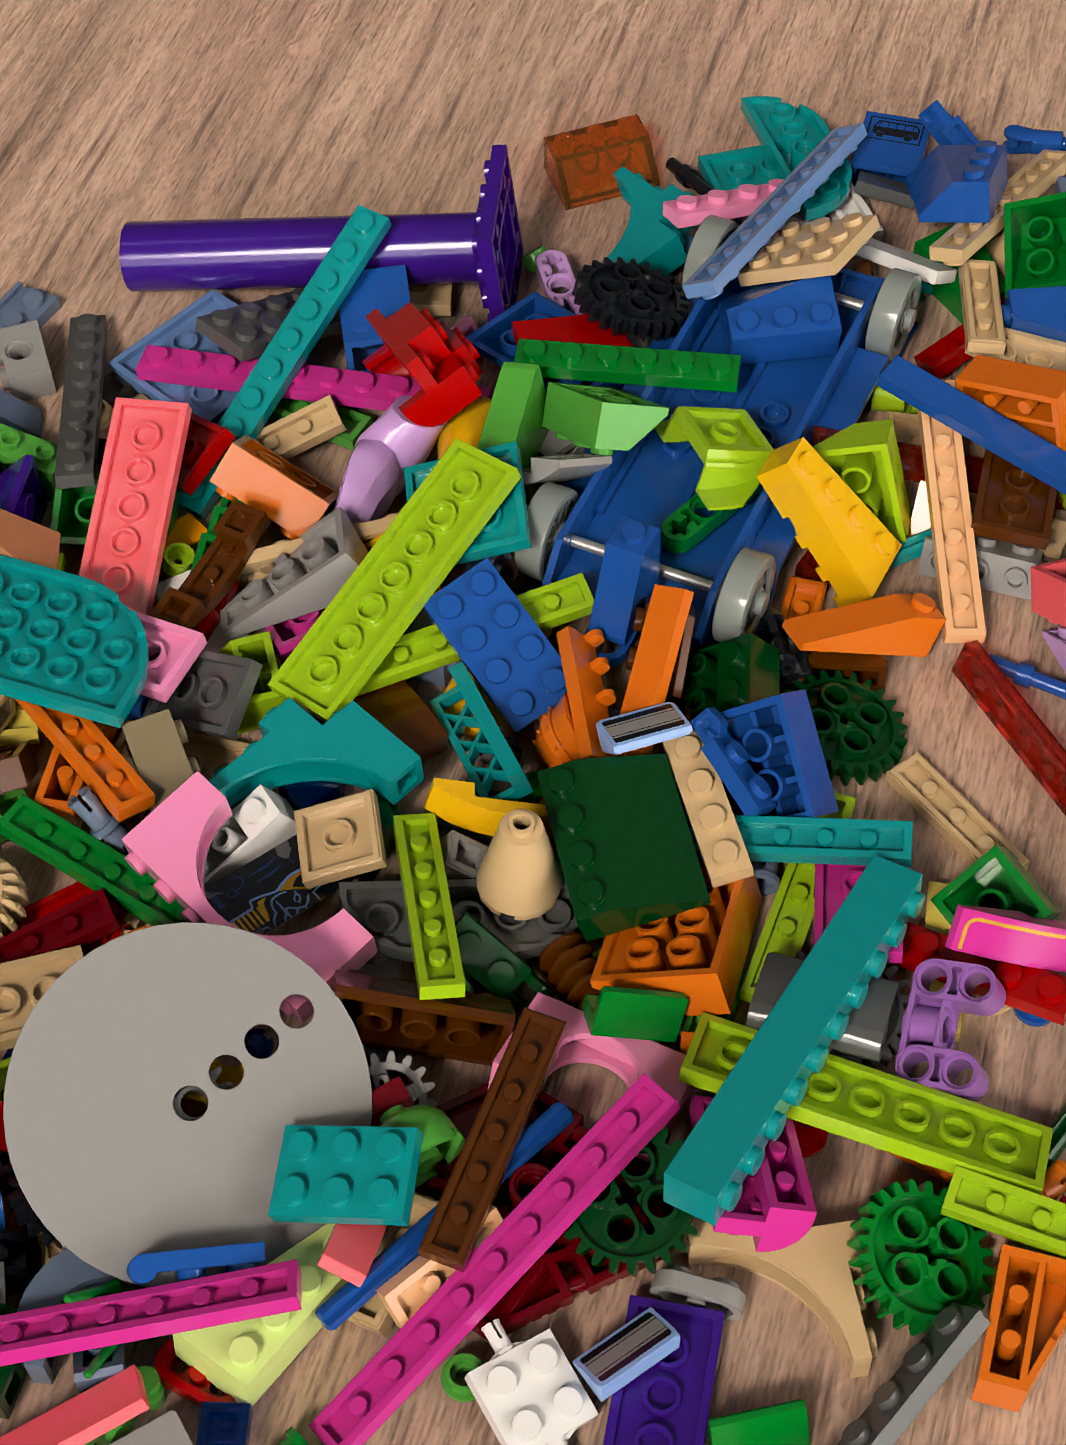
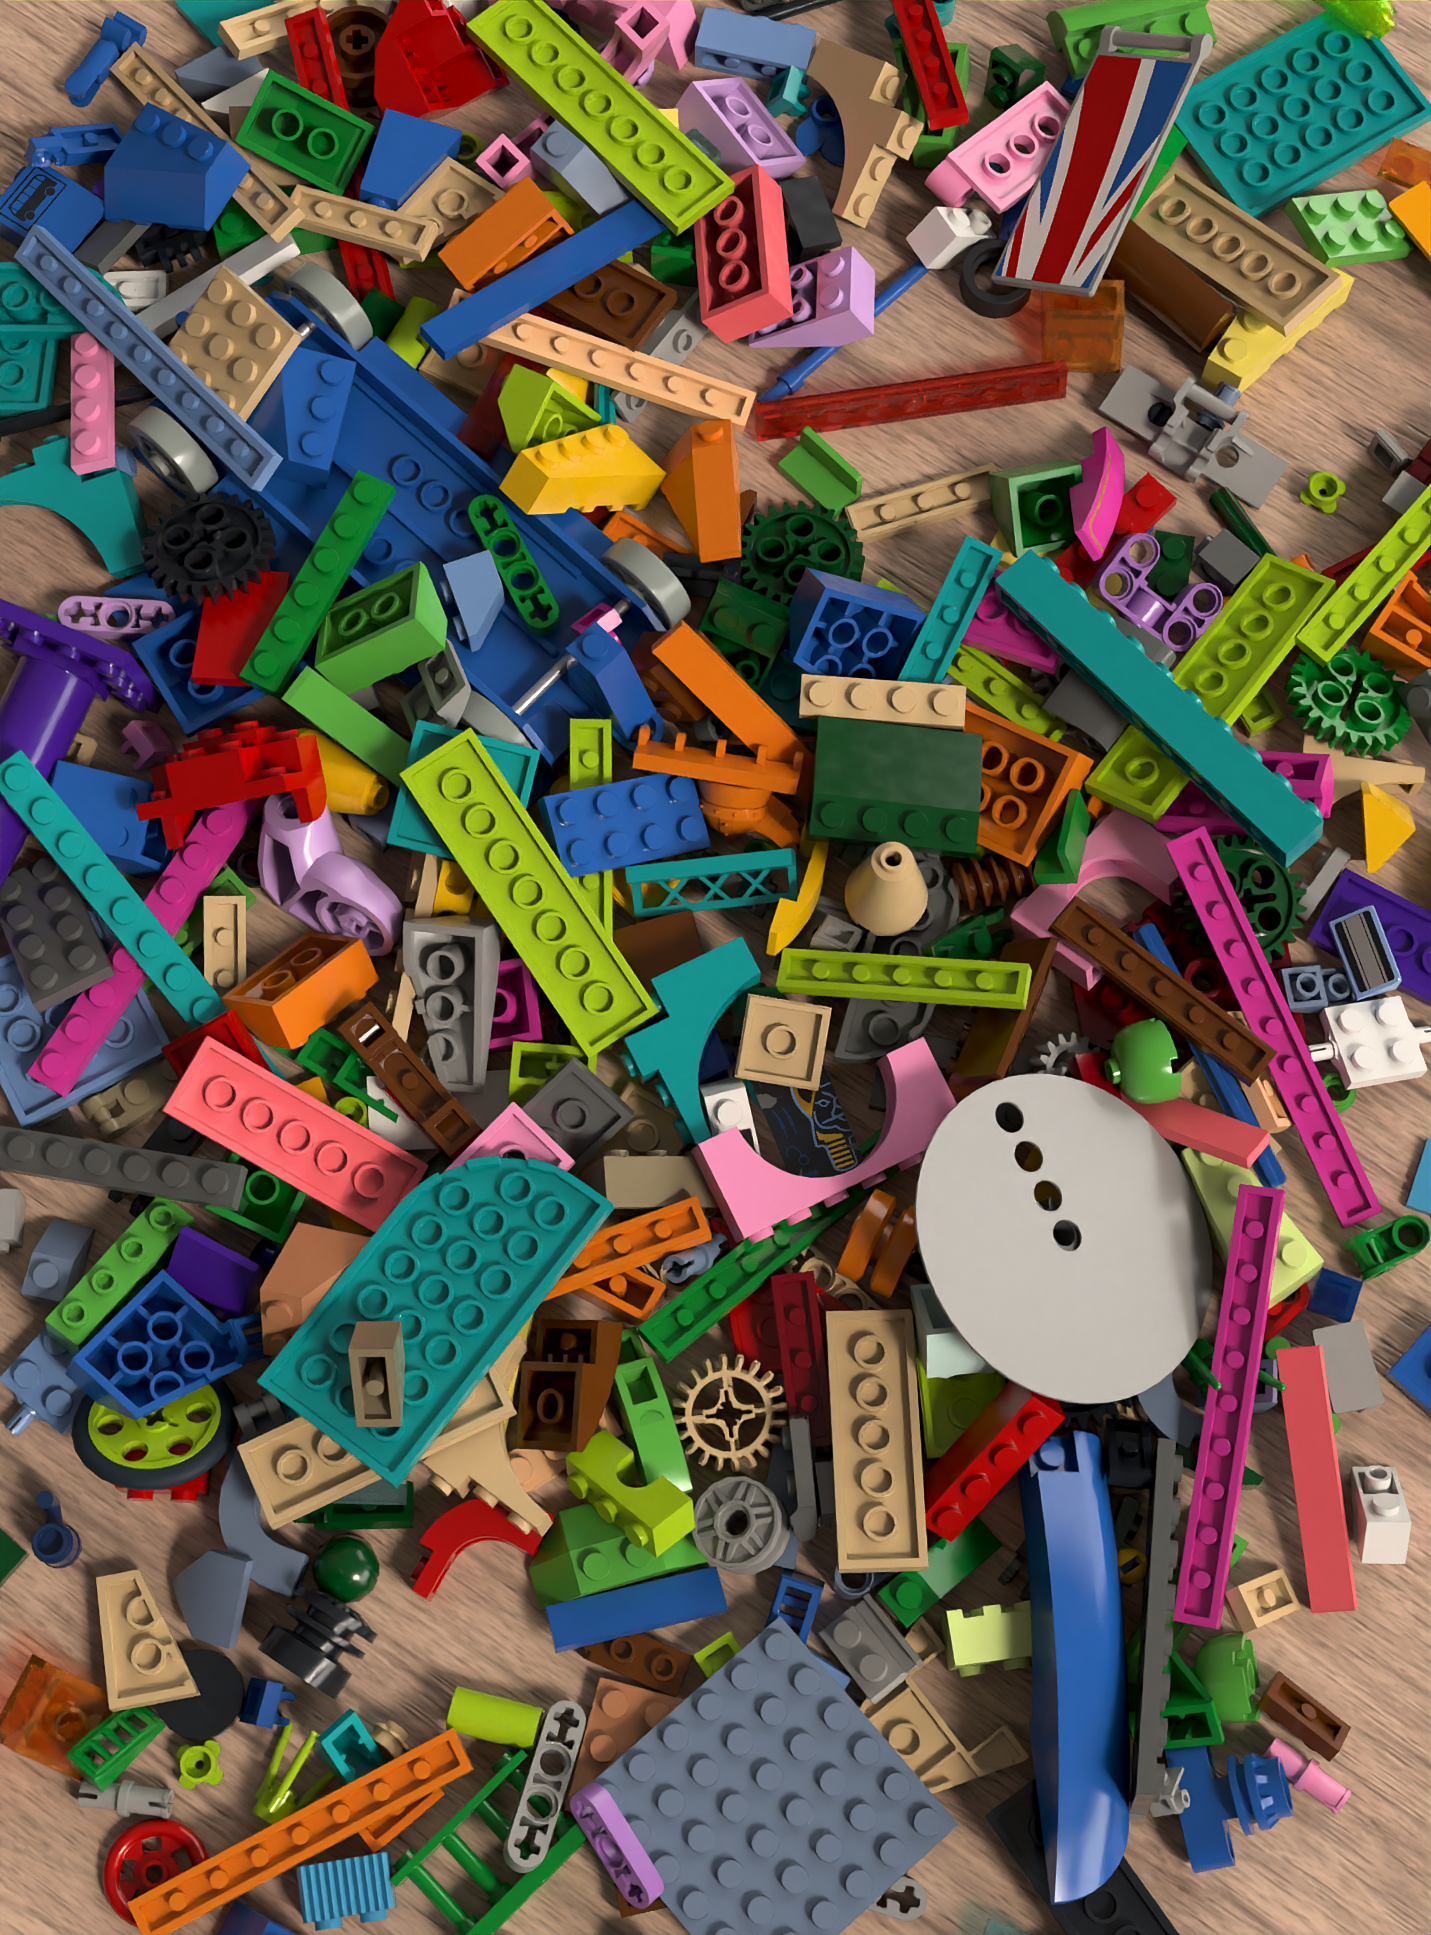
camera: 75 degrees left, 20 degrees up
(193, 1262) = (1201, 1274): blue plate -> none
(346, 1175) = (1173, 1121): teal plate -> none
(568, 1312) = (1313, 988): none -> sand blue slope
(642, 728) = (791, 725): slope -> none
(665, 480) = (477, 596): none -> medium blue slope
(677, 566) = (603, 615): none -> dark pink tile
(728, 447) = (466, 527): lime piece -> none
(731, 764) = (852, 662): blue hinge -> none
(790, 1326) = (1385, 825): none -> yellow slope
(871, 1176) = (1260, 713): none -> lime tile
(904, 224) = (167, 244): none -> black hinge
(922, 356) = (381, 312): none -> dark green tile
(939, 724) = (821, 473): none -> bright green panel
(1000, 1052) = (1173, 566): none -> dark green plate
(1027, 1091) = (1224, 561): none -> dark grey brick

